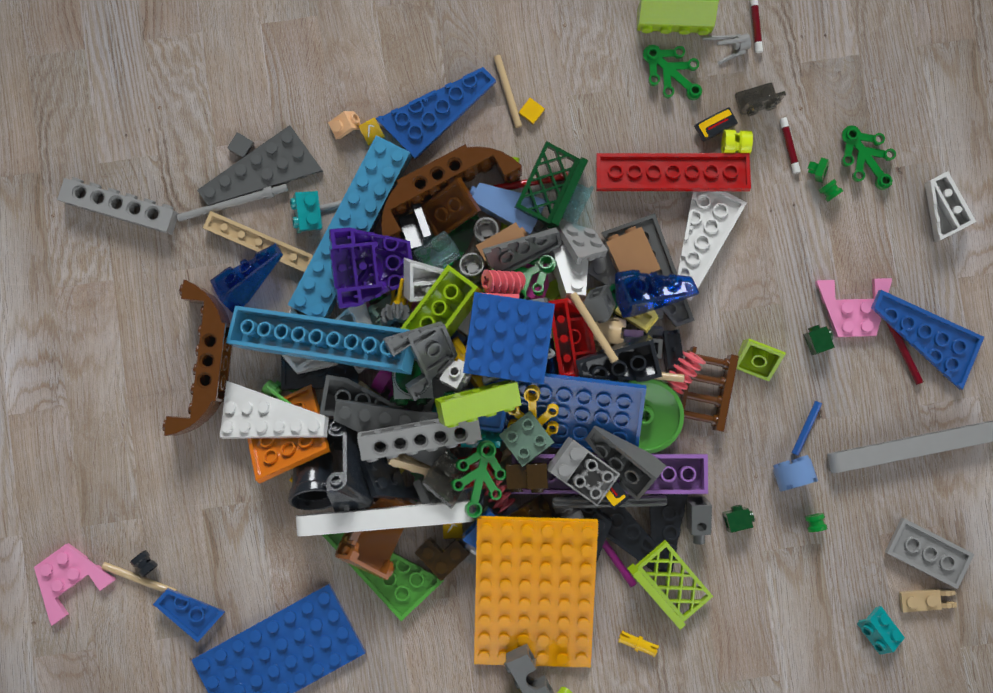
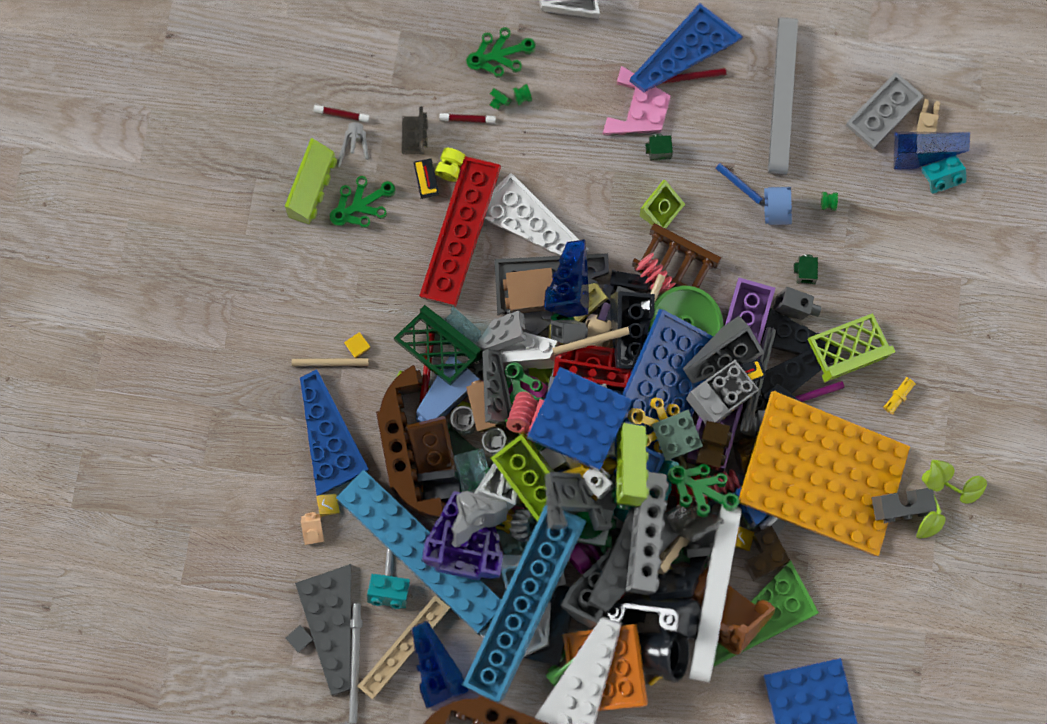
camera: 75 degrees left, 10 degrees down
(389, 265) = (476, 513): none -> light grey piece
(901, 602) = (923, 148): none -> clear blue wedge

